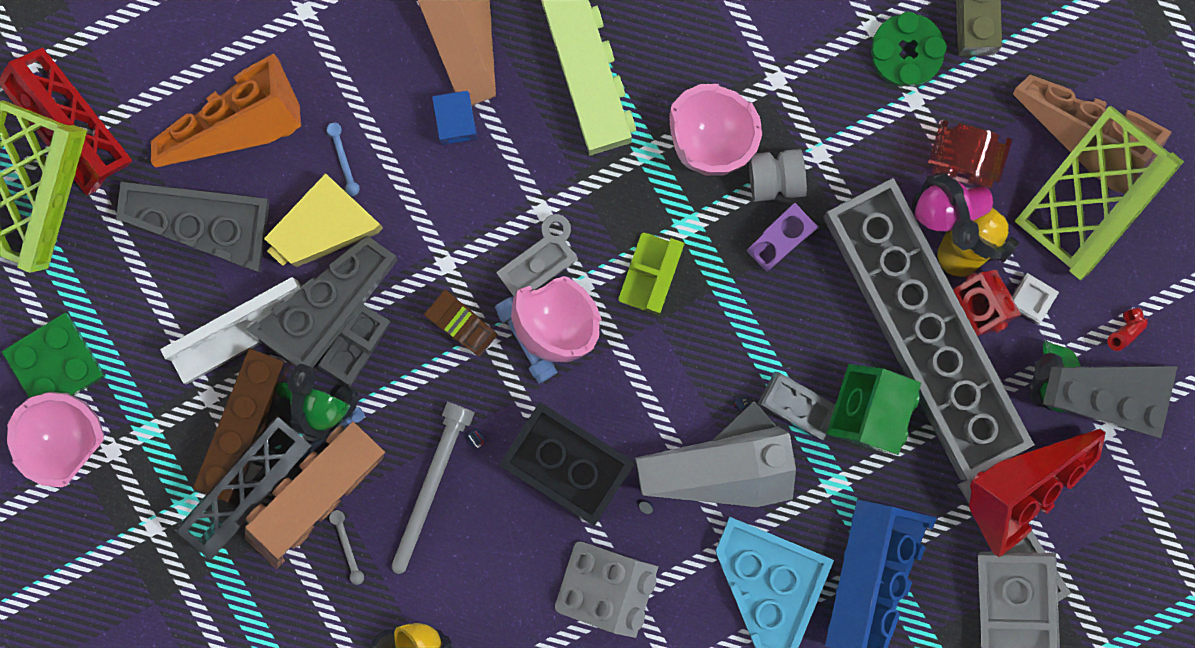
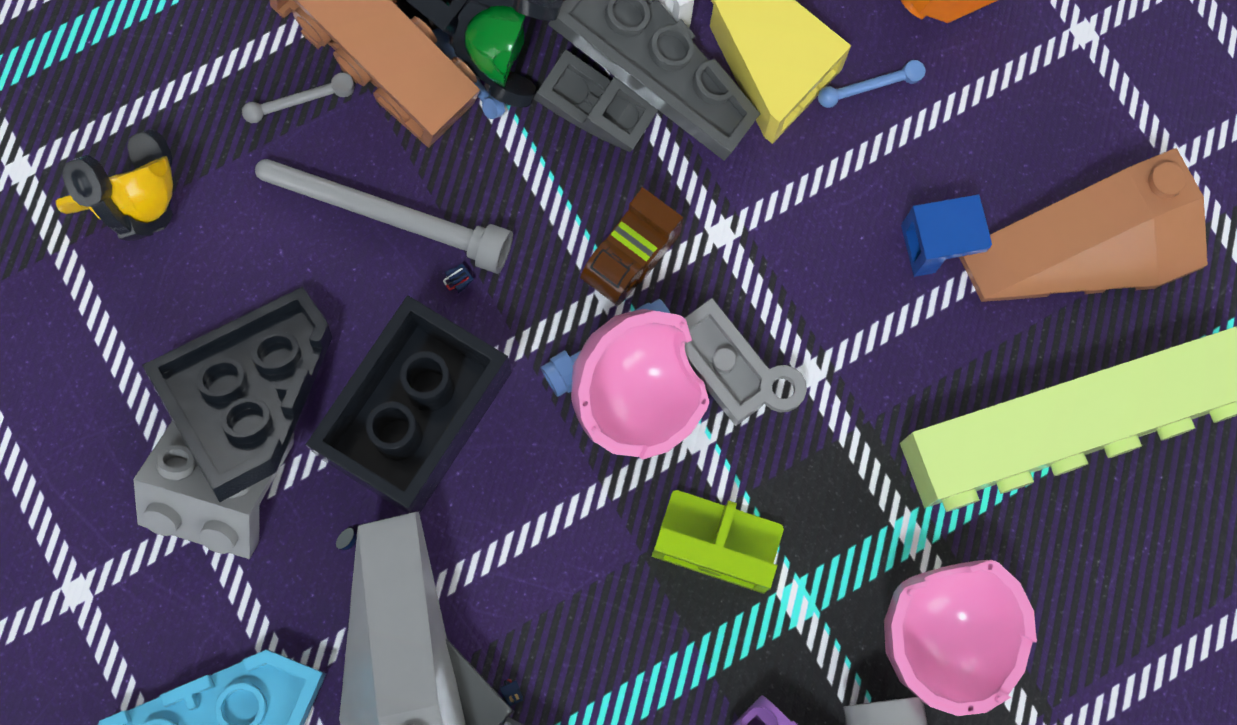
camera: 80 degrees right, 10 degrees down
(553, 569) = (243, 389): none -> black plate

